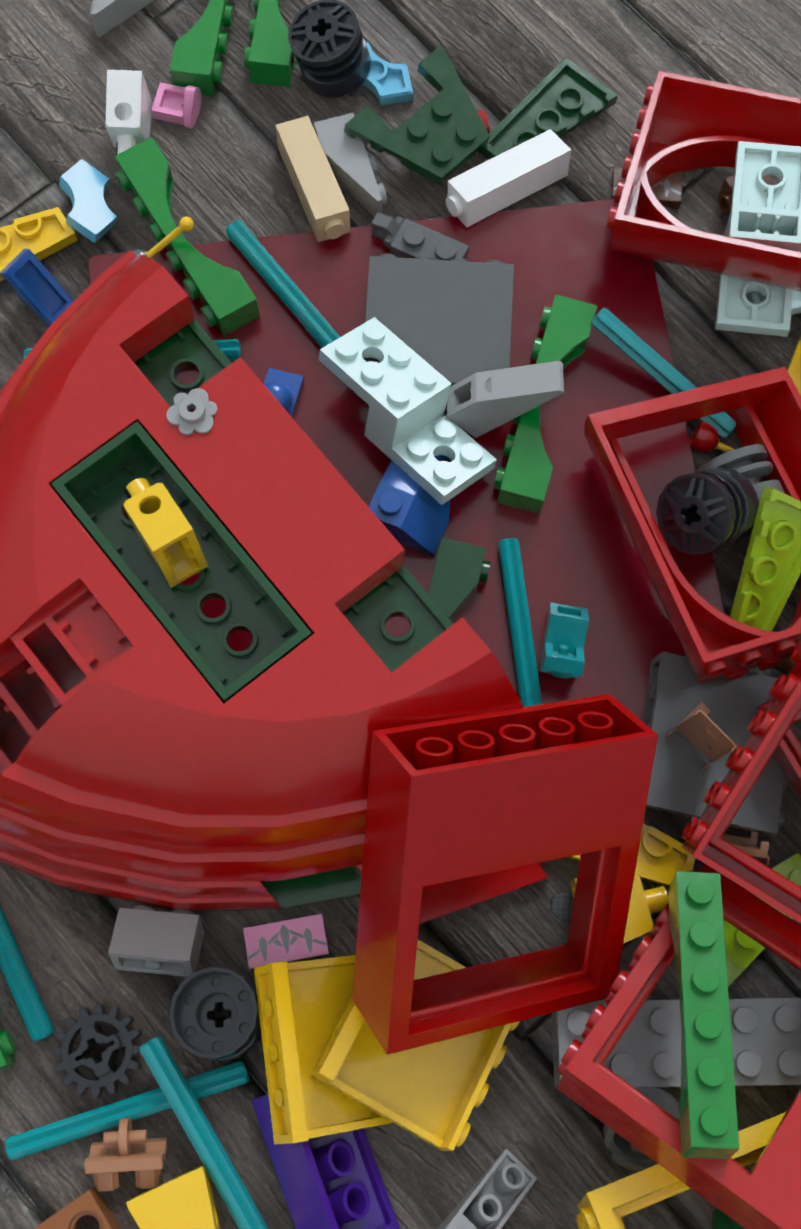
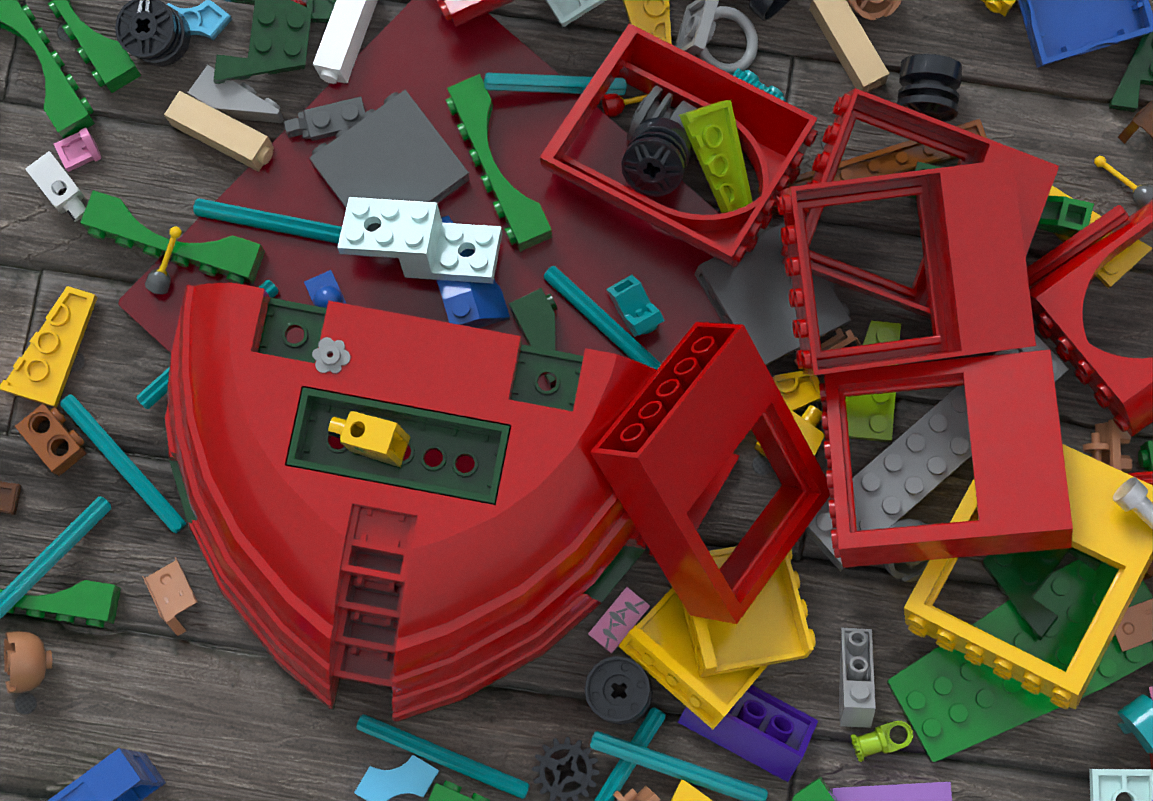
camera: 35 degrees left, 5 degrees up
(36, 286) = (107, 351): blue tile -> none
(89, 211) = (72, 258): tile -> none
(156, 941) = (546, 682): light grey brick -> none
(502, 394) = (472, 181): light grey slope -> none
(705, 734) = (763, 296): nougat piece -> none
(707, 1064) = (912, 483): green arch -> none

